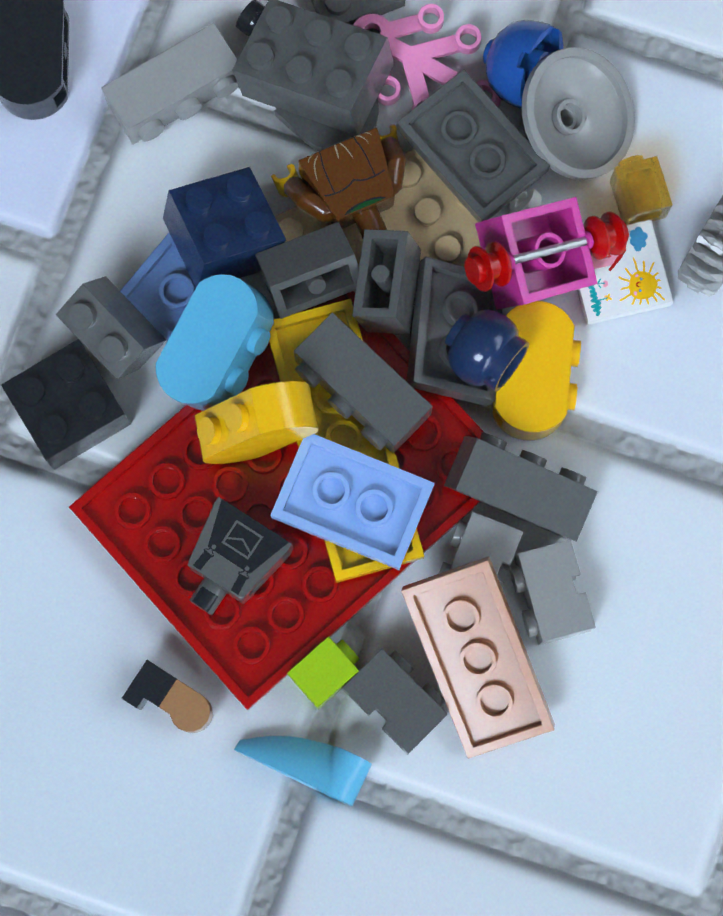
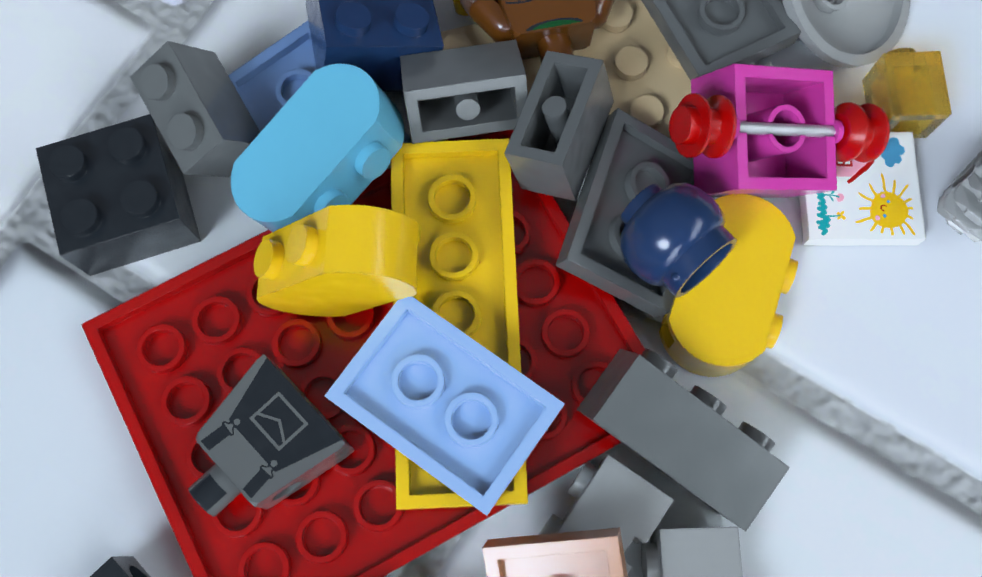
camera: 15 degrees right, 5 degrees down
(361, 384) = (495, 246): dark grey brick -> none

